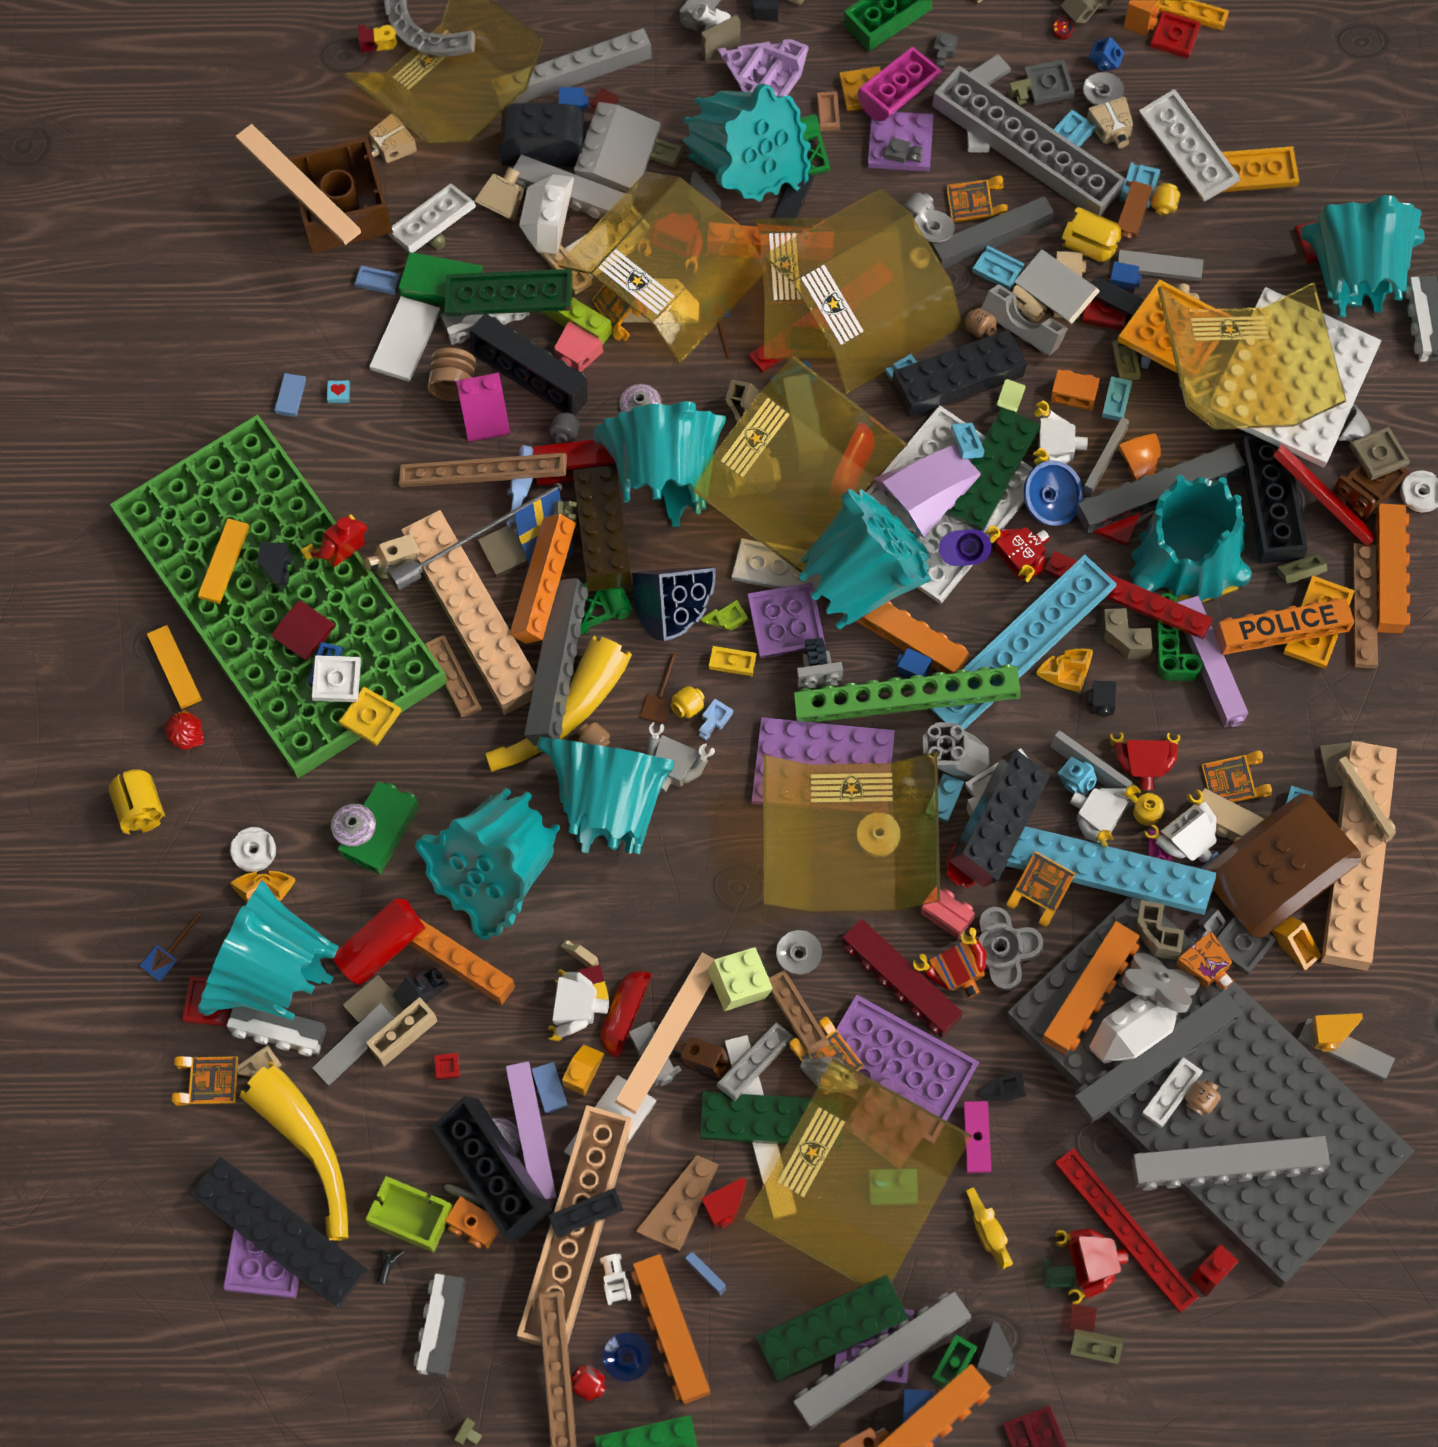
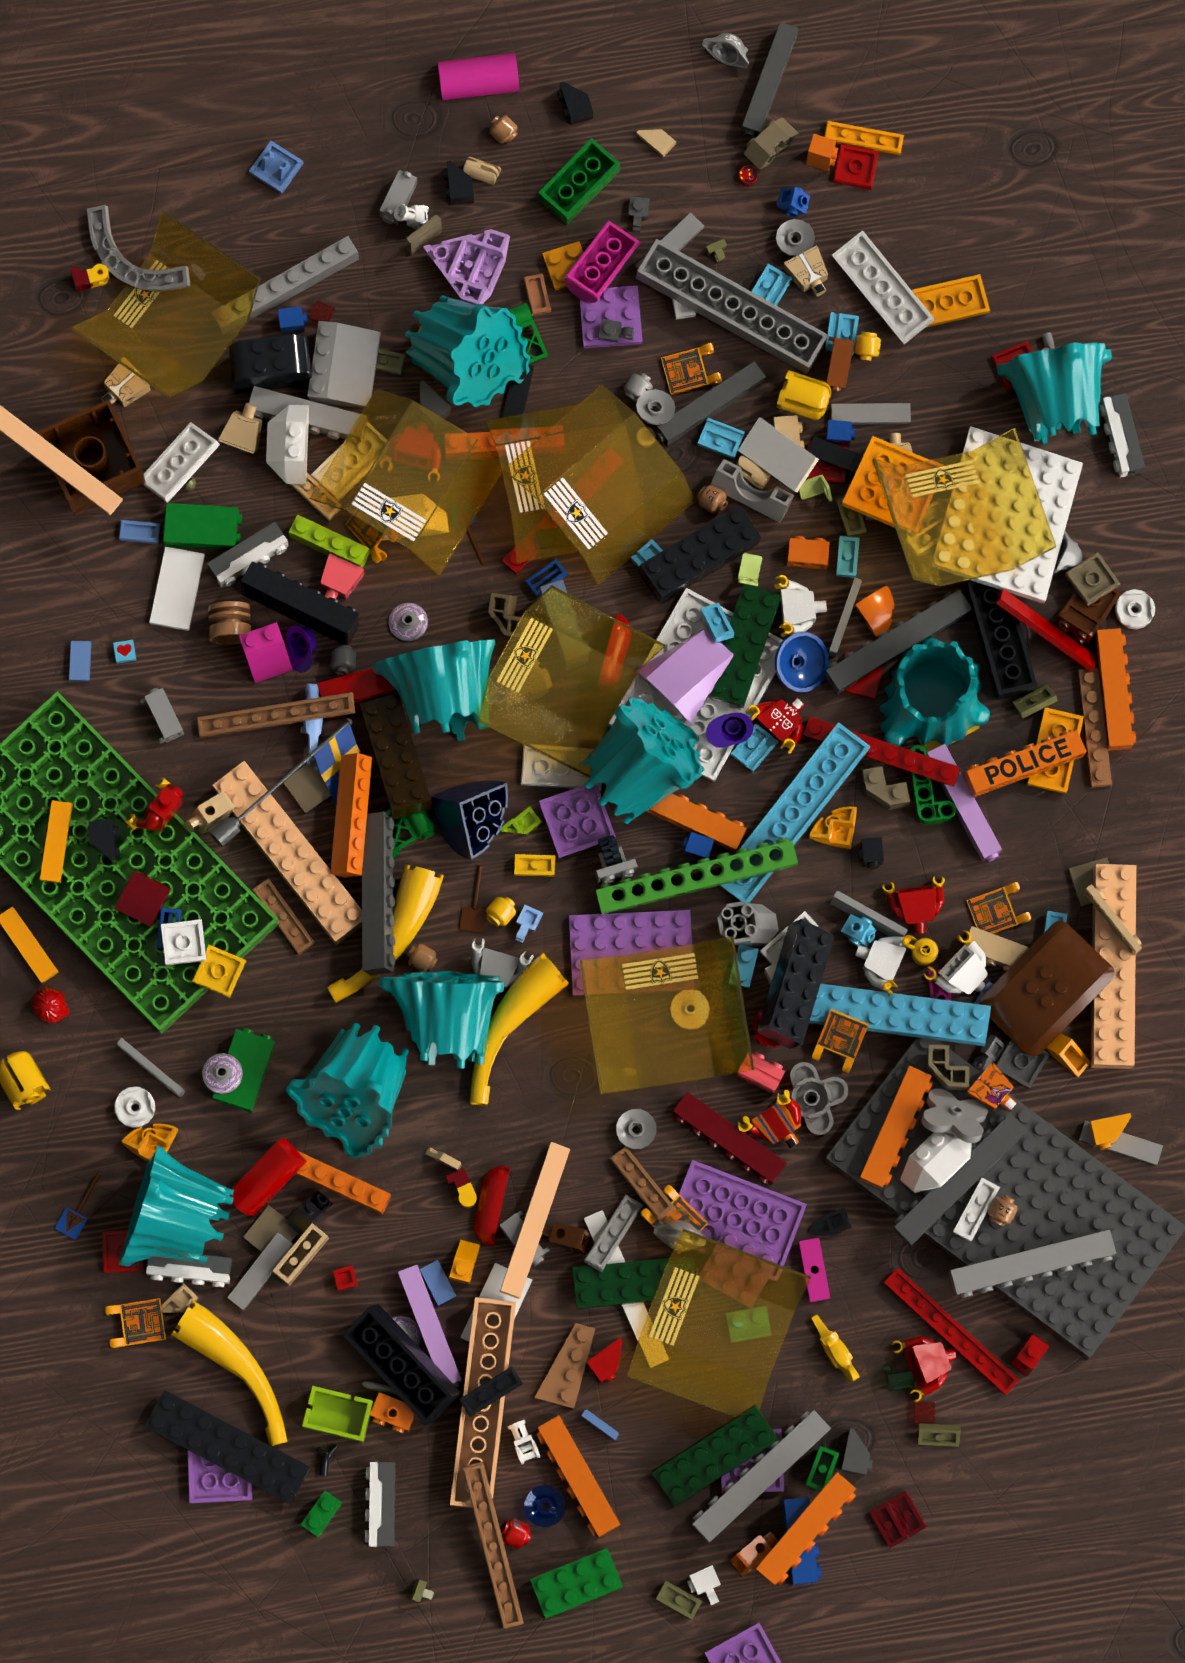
camera: 15 degrees left, 10 degrees up
(278, 810) = (150, 1067): none -> light grey tile
(365, 457) = (163, 715): none -> light grey brick
(370, 1325) = (321, 1514): none -> green brick
(508, 292) = (269, 535): dark green plate -> none
(522, 409) = (300, 645): none -> dark purple piece
(567, 508) = (360, 745): olive tile -> none
(575, 1004) = (449, 1207): white torso -> none
(700, 792) = (525, 996): none -> yellow brick
(739, 979) = (588, 1162): yellowish green brick -> none
(989, 575) = (755, 749): none -> medium azure plate
(1049, 82) = (743, 236): dark grey plate -> none
(1090, 326) = (815, 486): none -> yellowish green bracket

